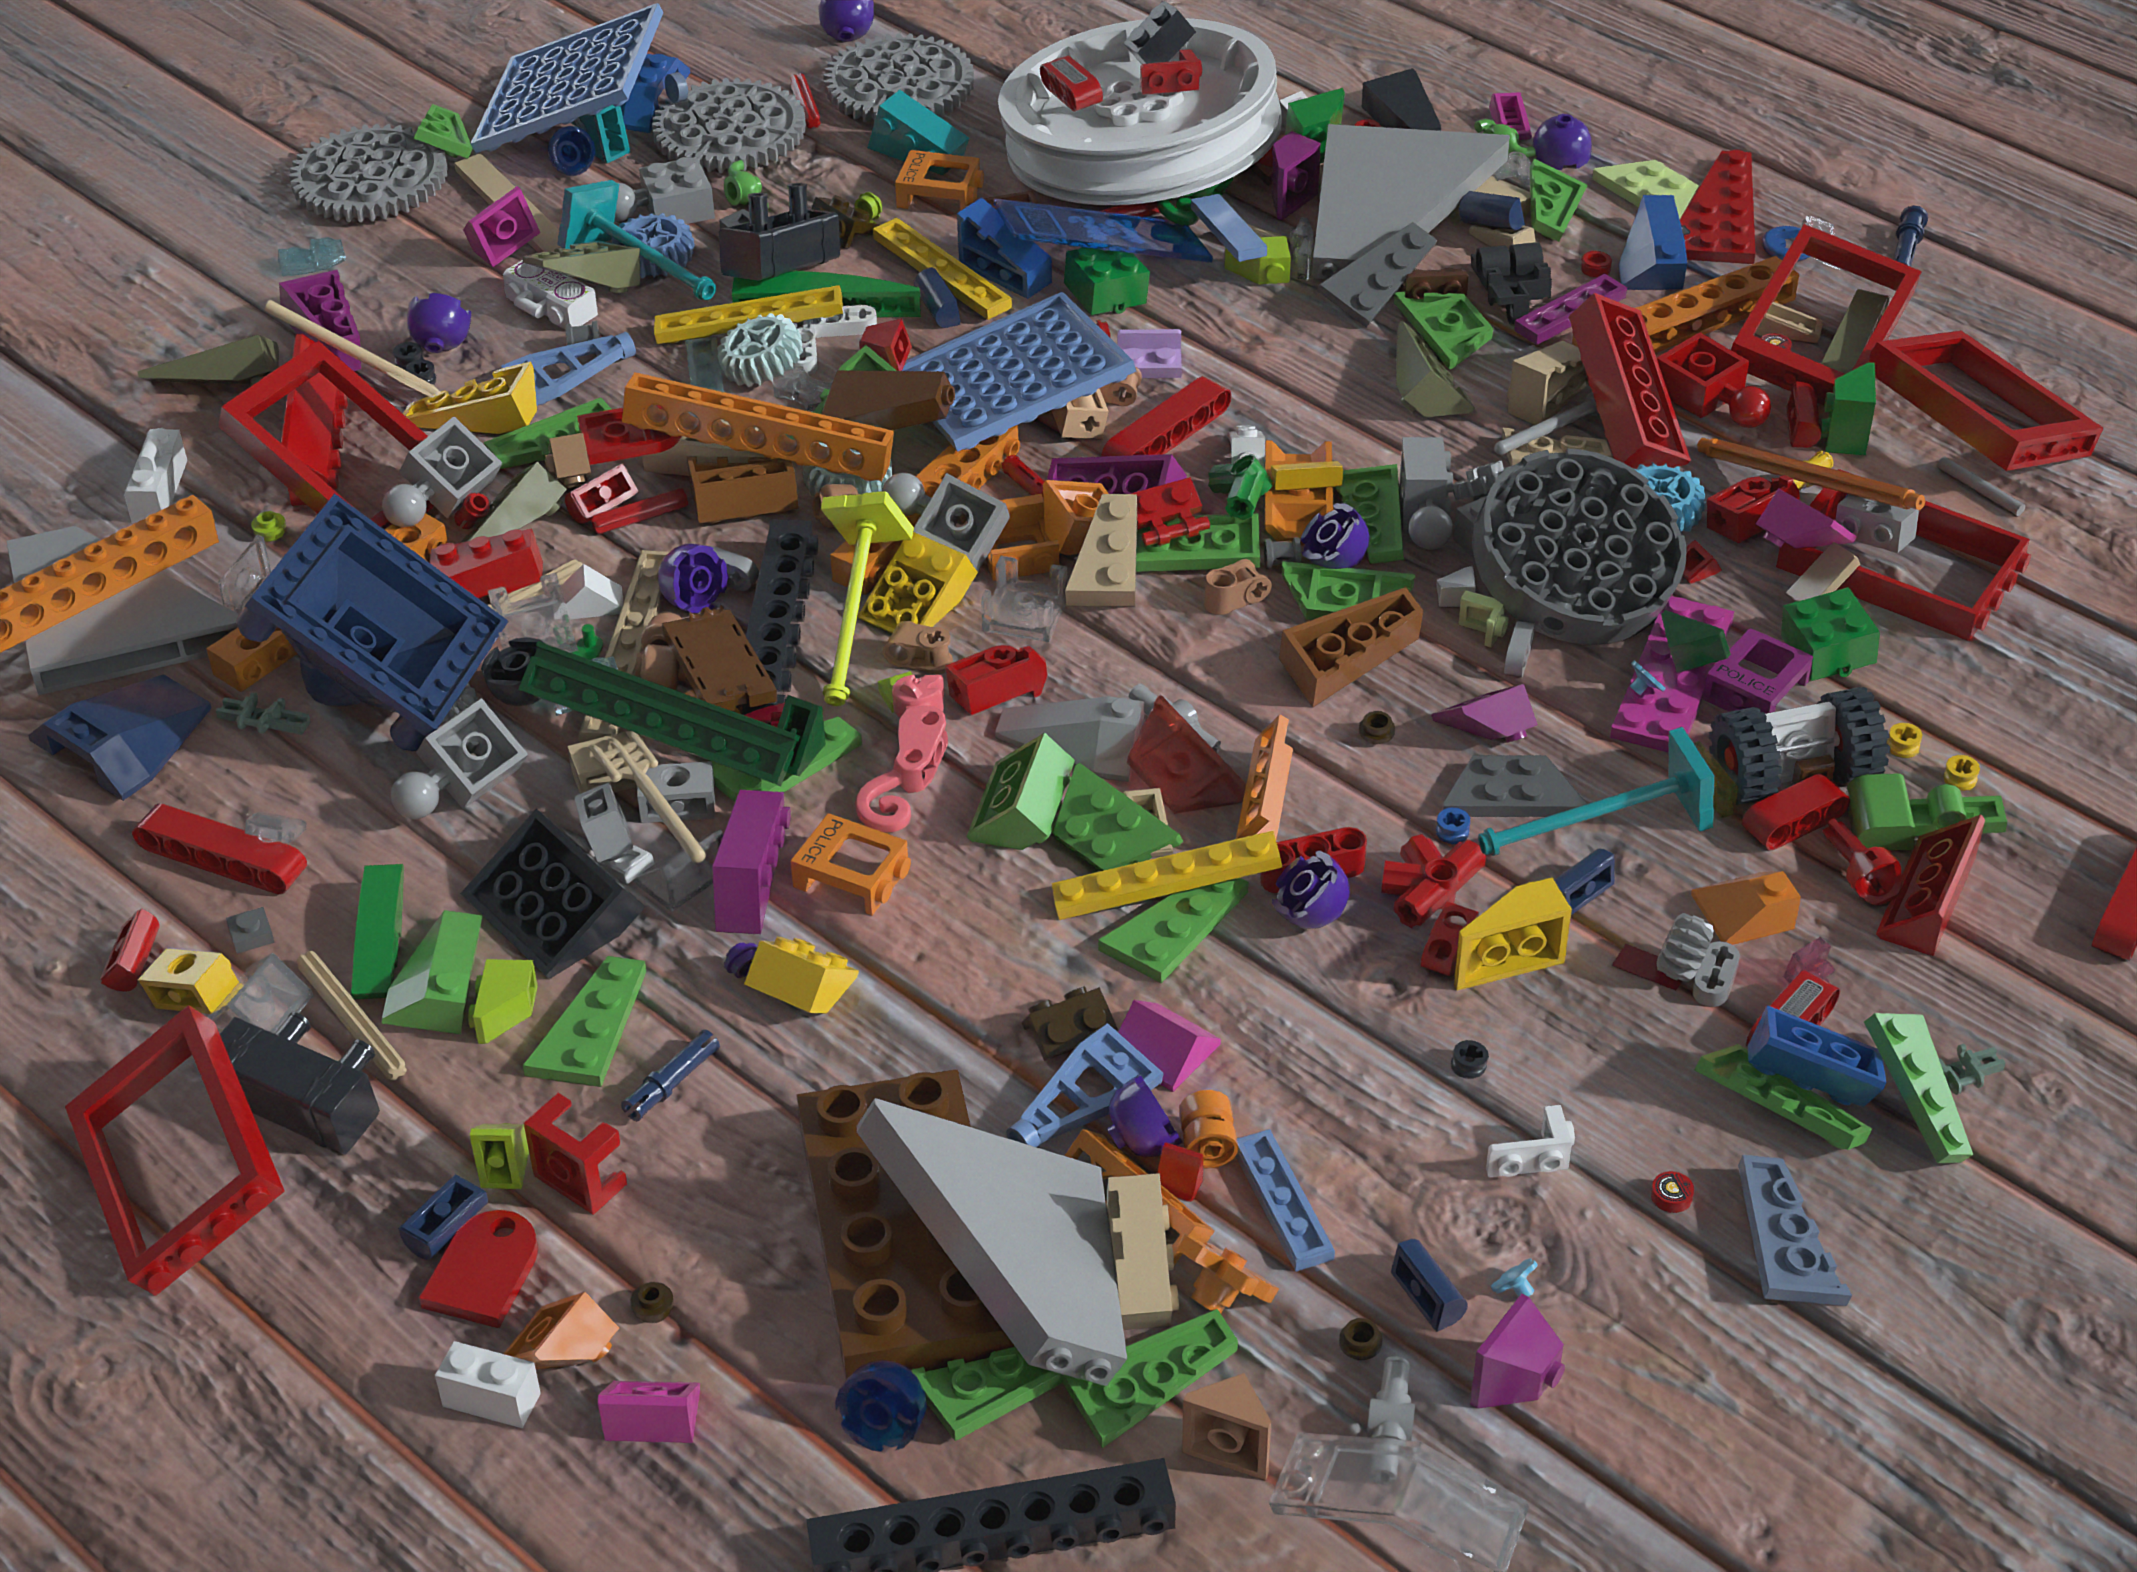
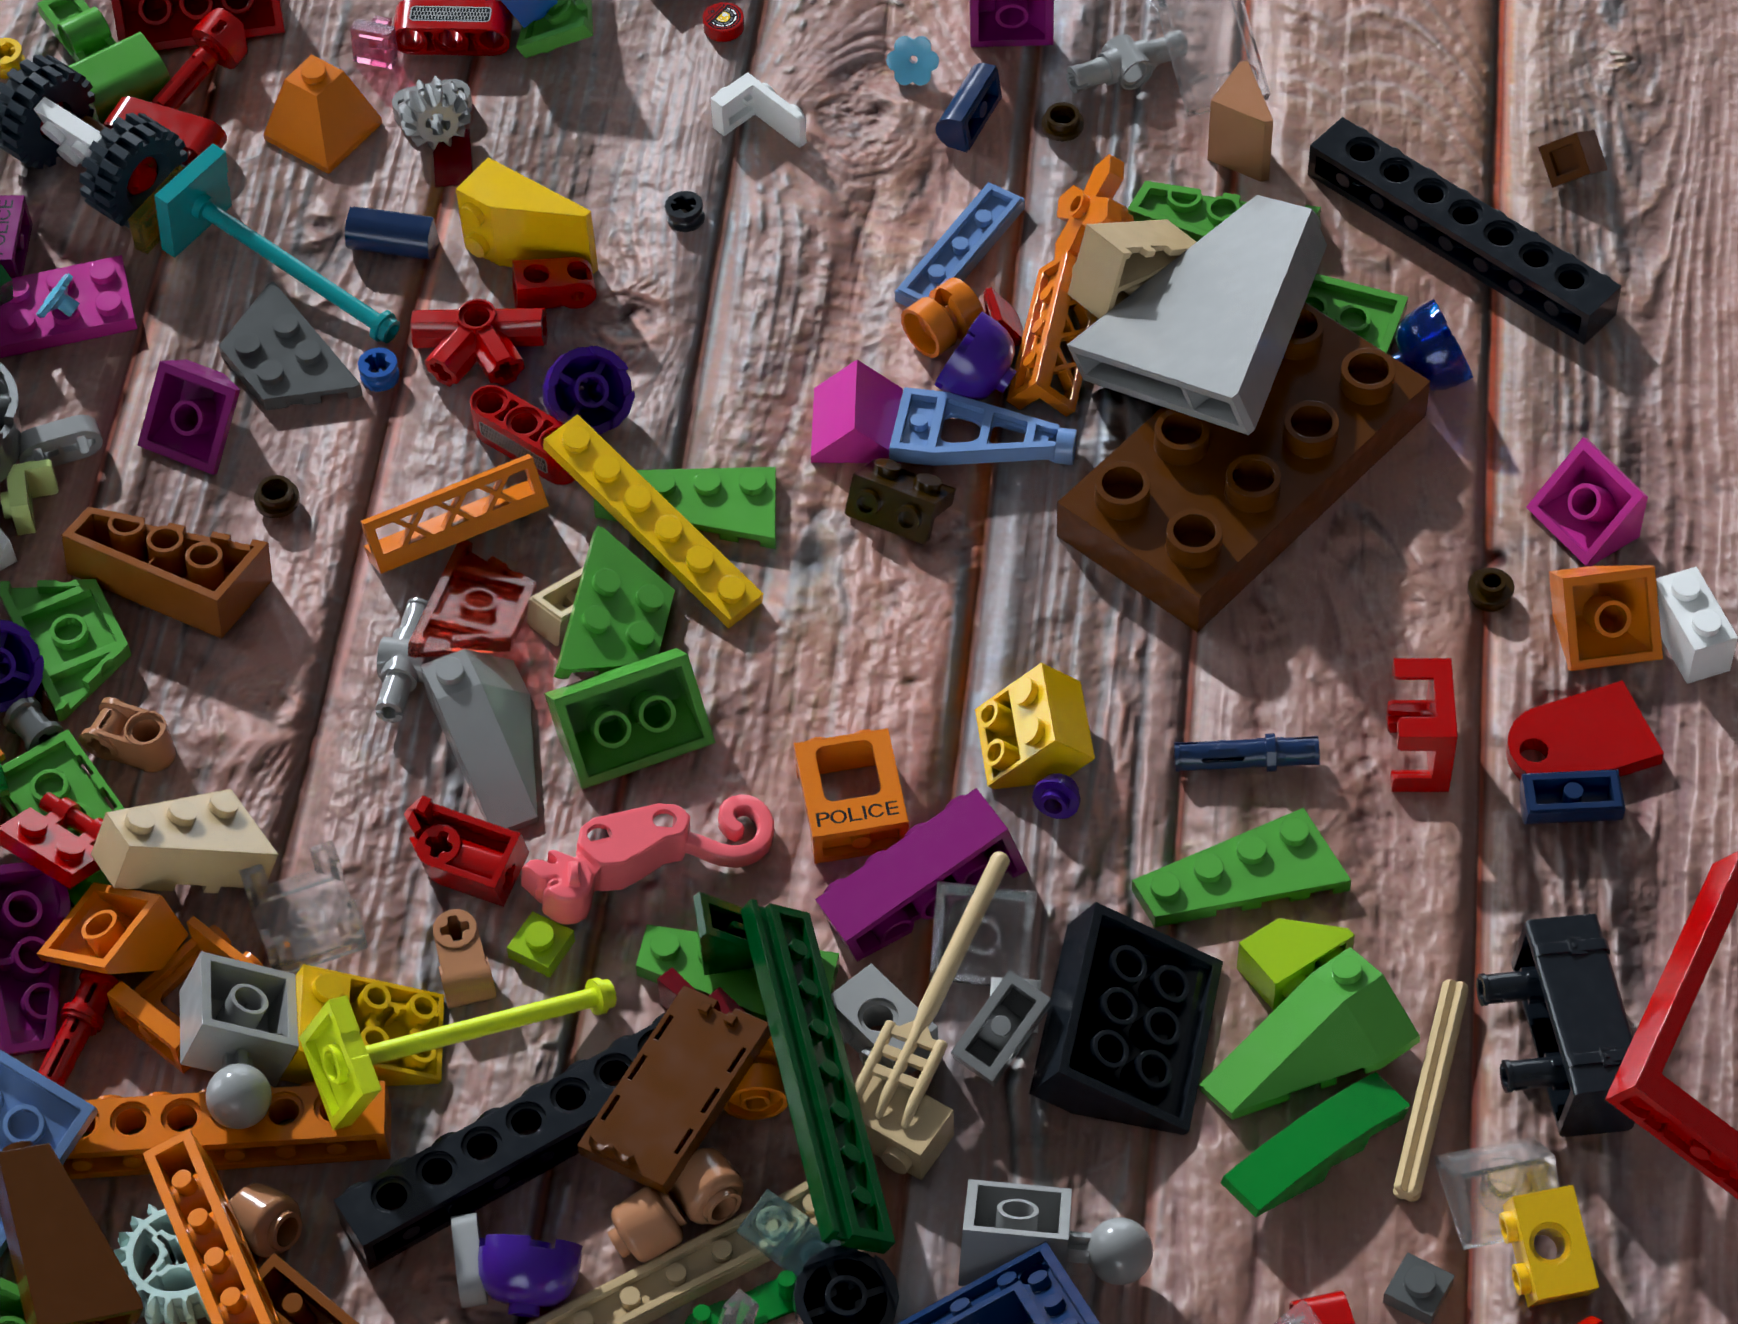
camera: 125 degrees left, 10 degrees up
(500, 1155) = (1470, 794): lime slope -> none

